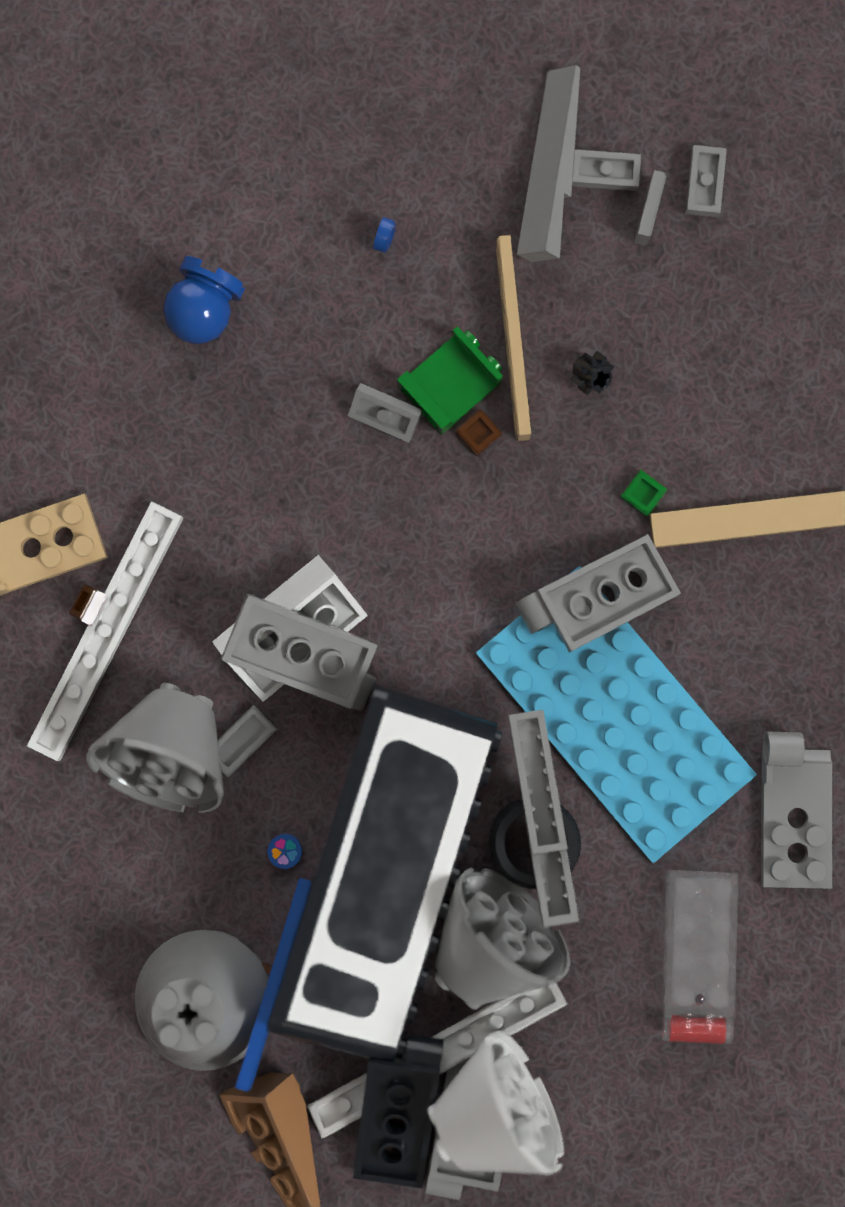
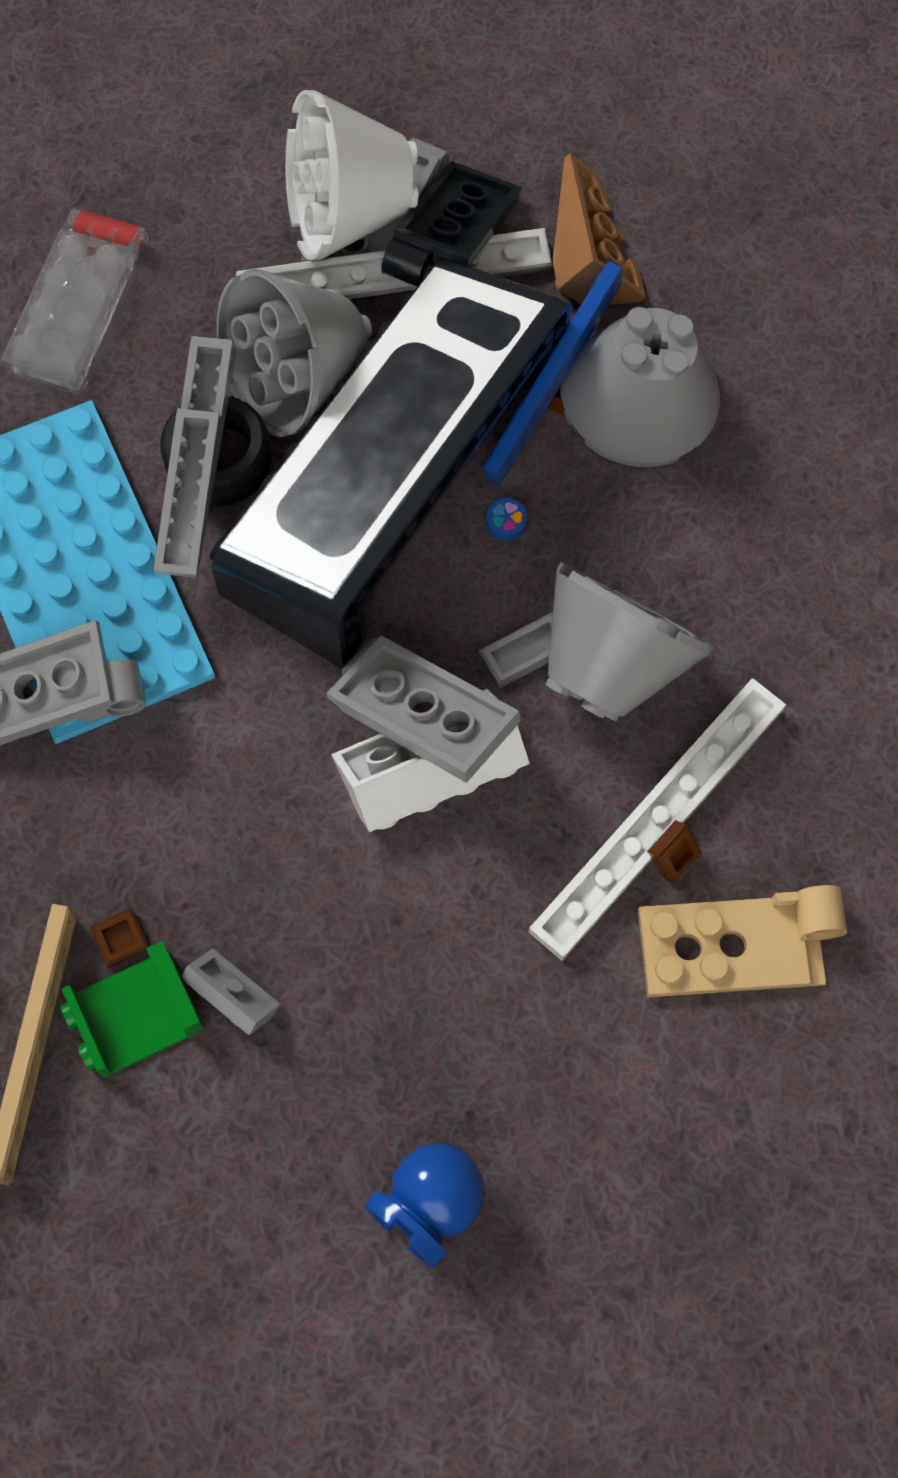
camera: 165 degrees left, 15 degrees down
(384, 235) = (153, 1235): blue tile -> none

